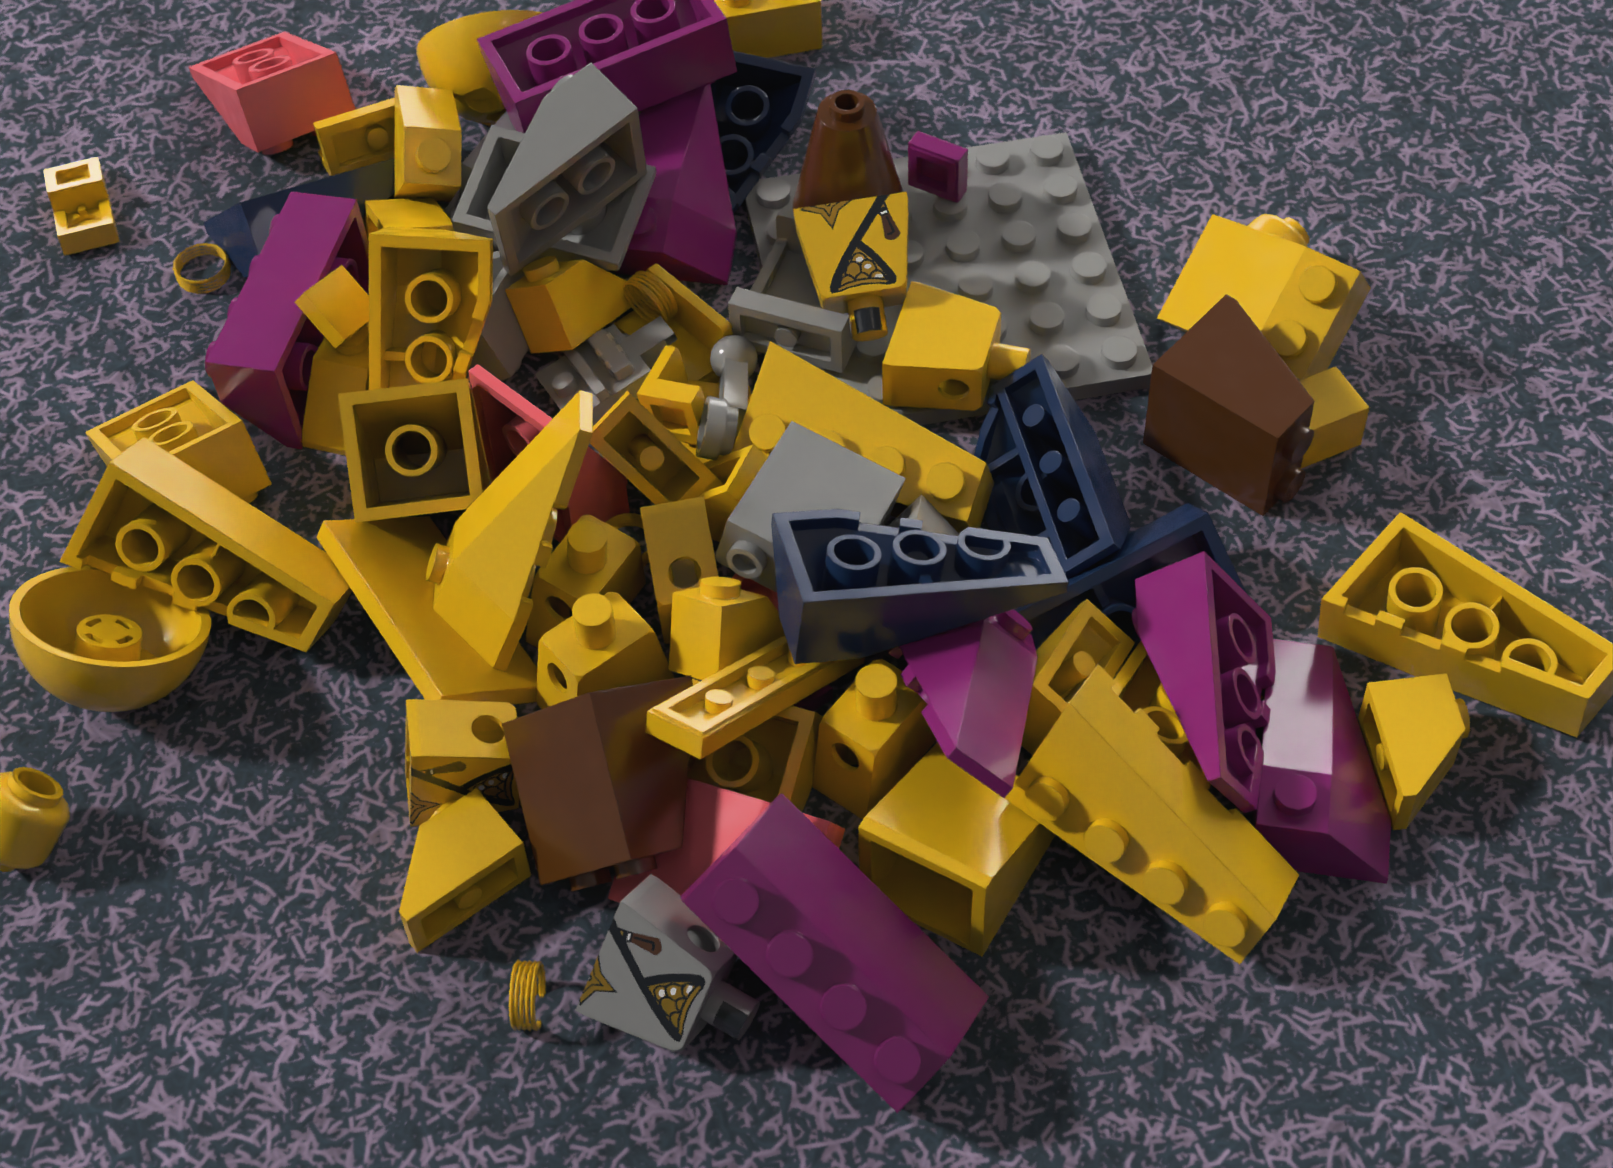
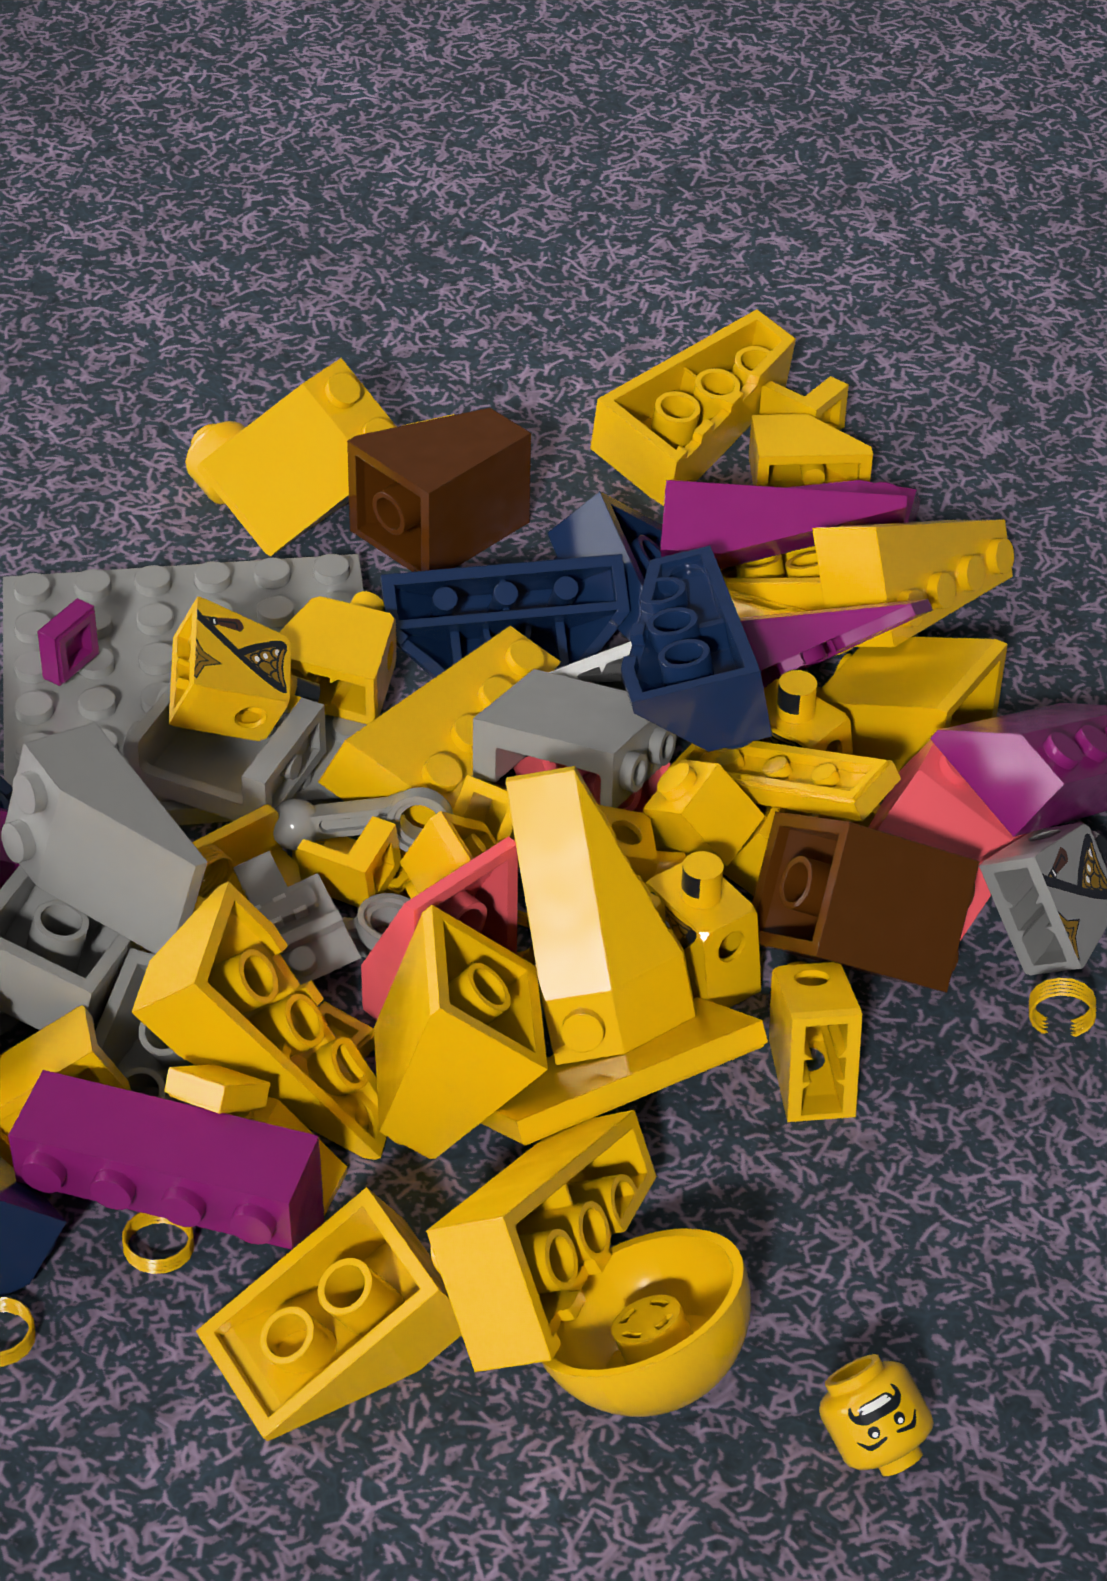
camera: 90 degrees left, 10 degrees down
(458, 867) = (929, 1055): yellow slope -> none
(846, 154) = (85, 674): reddish brown cone -> none
(1511, 752) = (824, 402): none -> yellow panel

